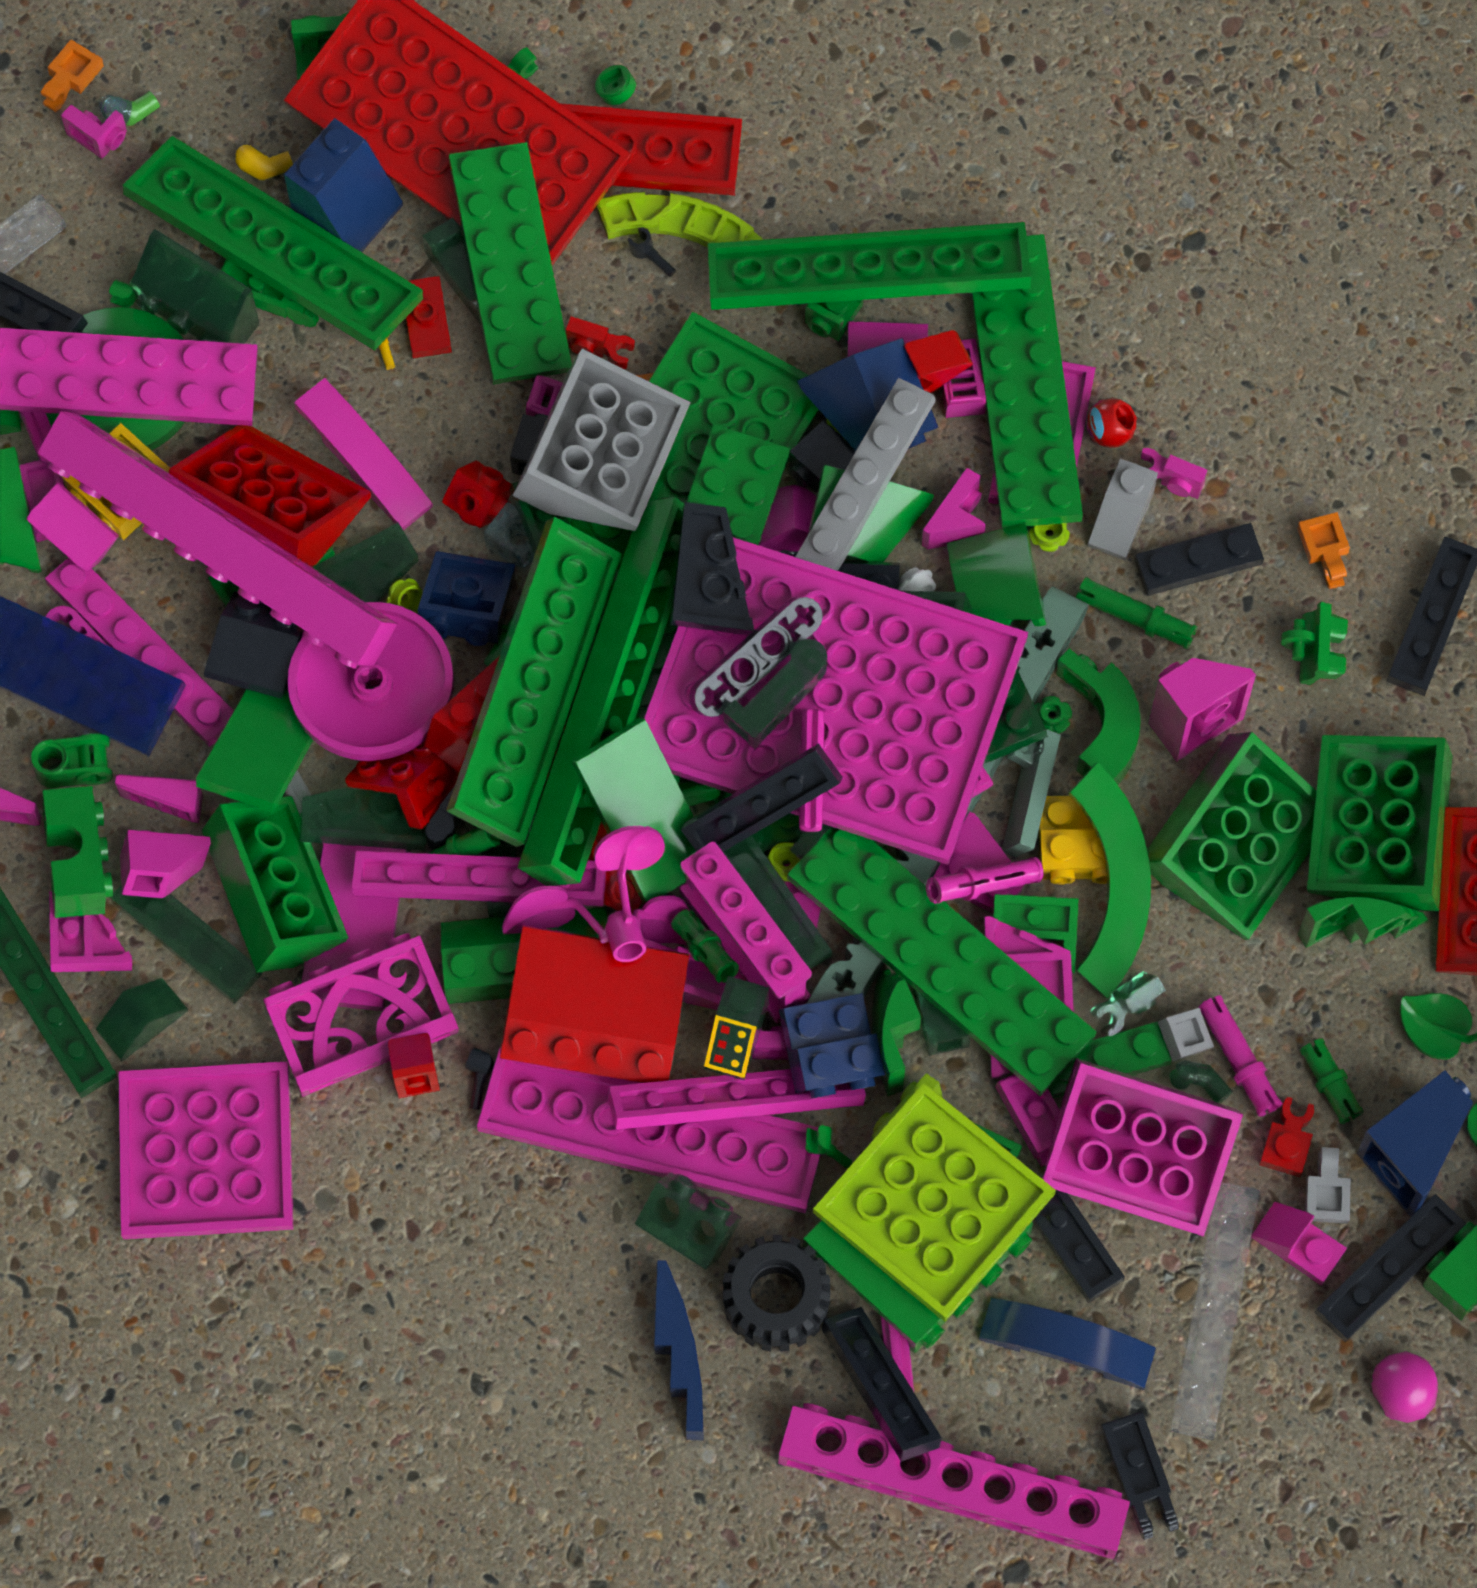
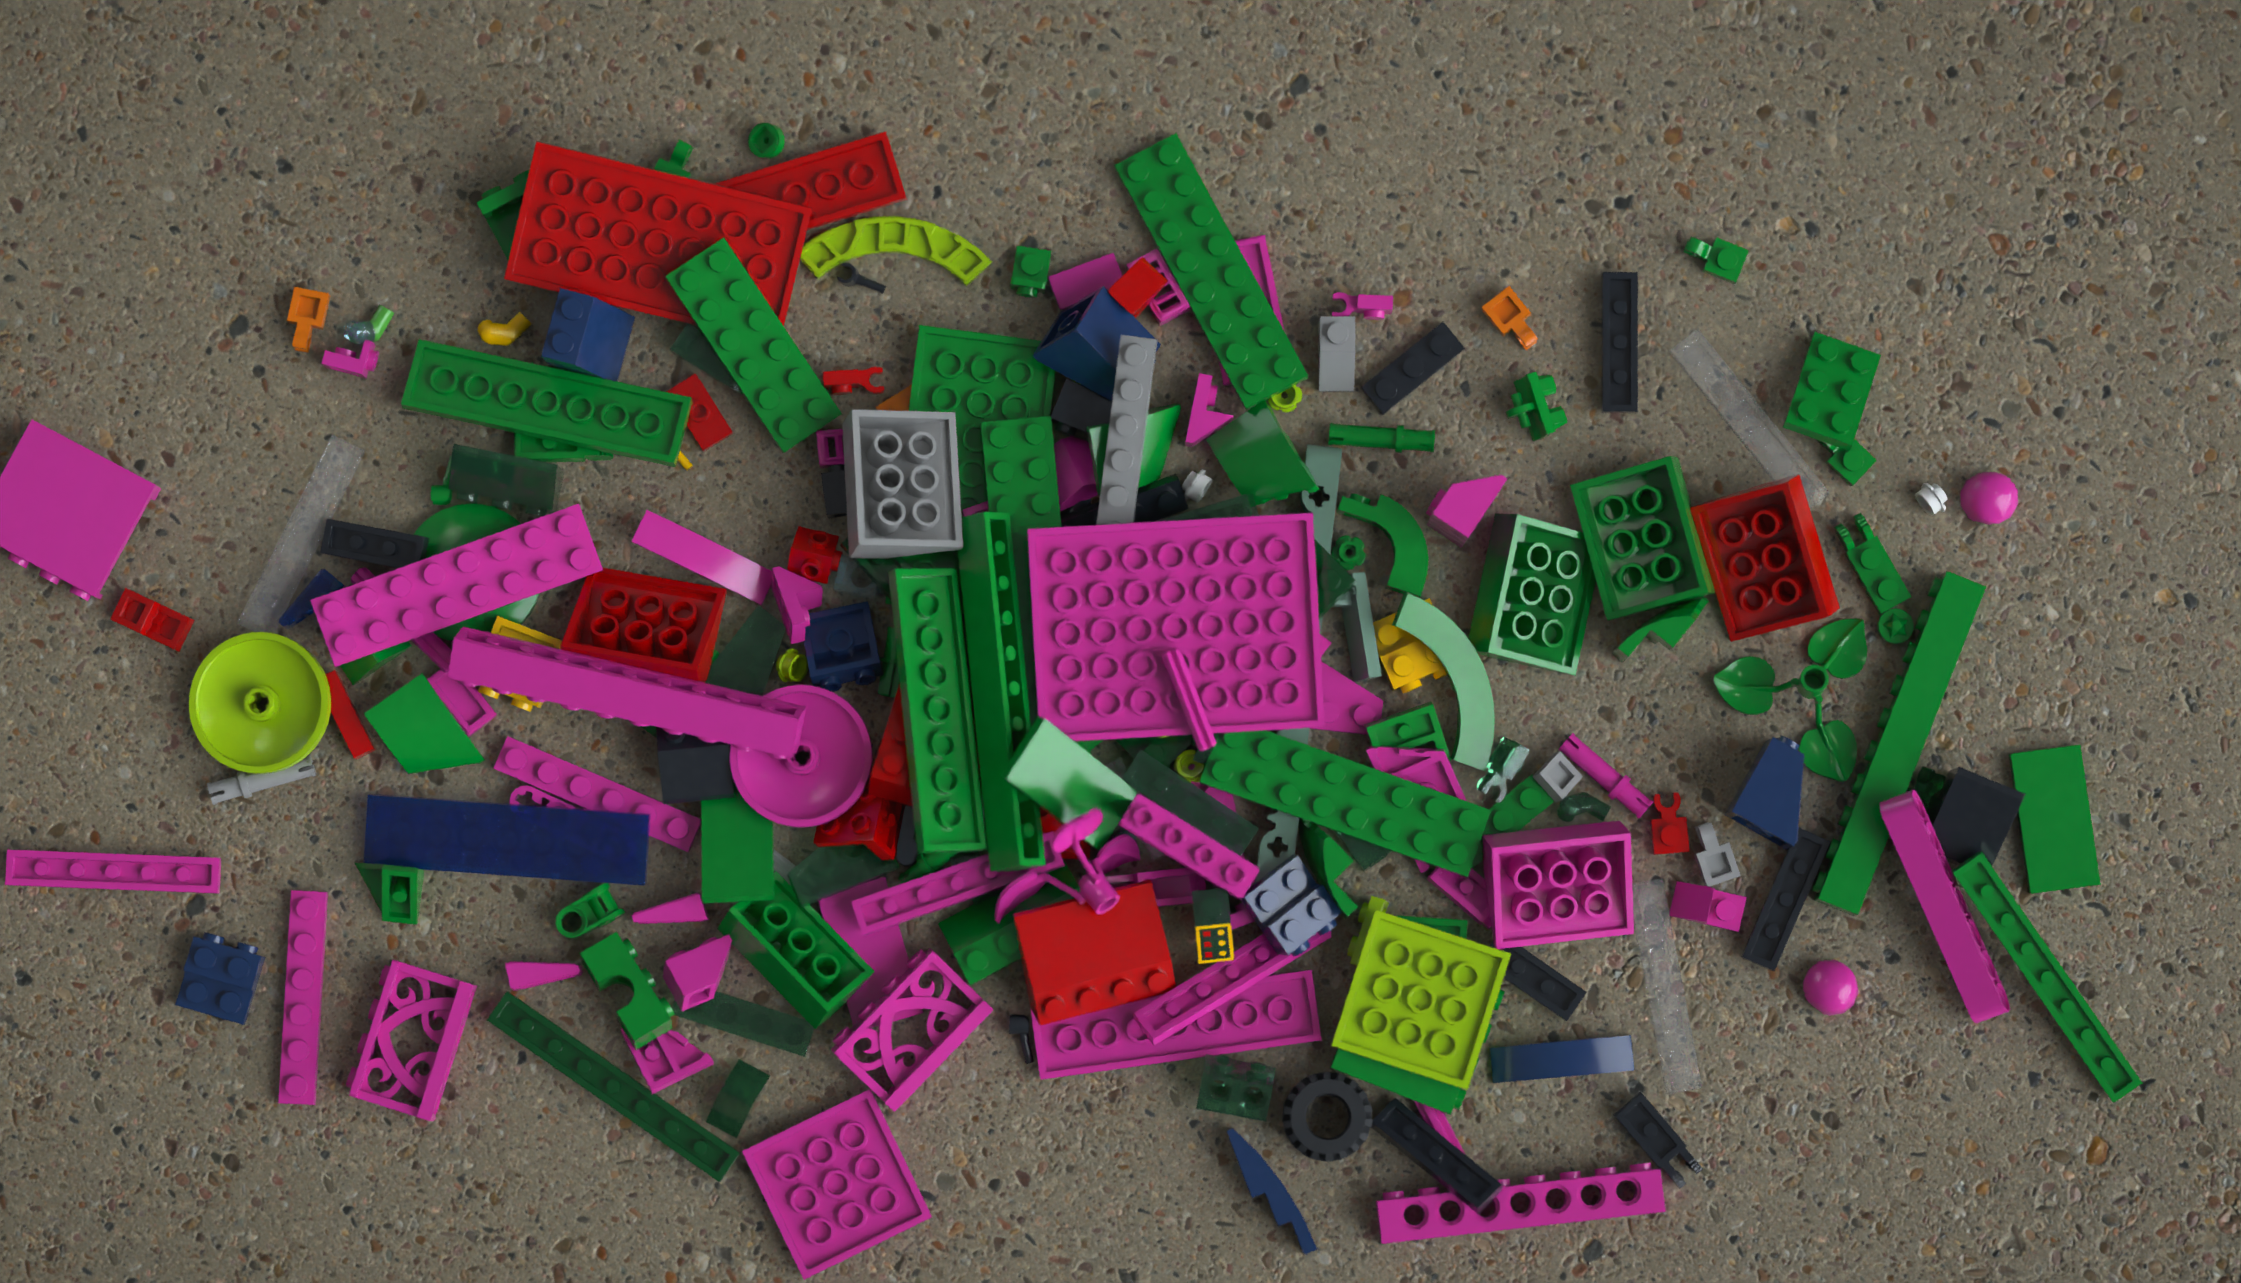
camera: 25 degrees left, 15 degrees up
(72, 527) = (498, 720): dark pink slope -> none
(413, 1065) = (969, 1051): red slope -> none
(440, 529) = (794, 598): none -> dark pink slope
(704, 945) = (1158, 865): green pin -> none
(707, 574) = (1039, 570): black wing -> none
(752, 651) = (1101, 622): beam -> none
(764, 801) = (1162, 744): black plate -> none
(780, 694) = (1150, 615): clear green leg -> none
(820, 1143) = (1311, 983): green hand -> none
(868, 266) = (1048, 228): green plate -> none
(948, 888) = (1345, 729): dark pink pin -> none
(1111, 422) = (1298, 281): red piece -> none
(1331, 1081) = (1684, 766): green pin -> none

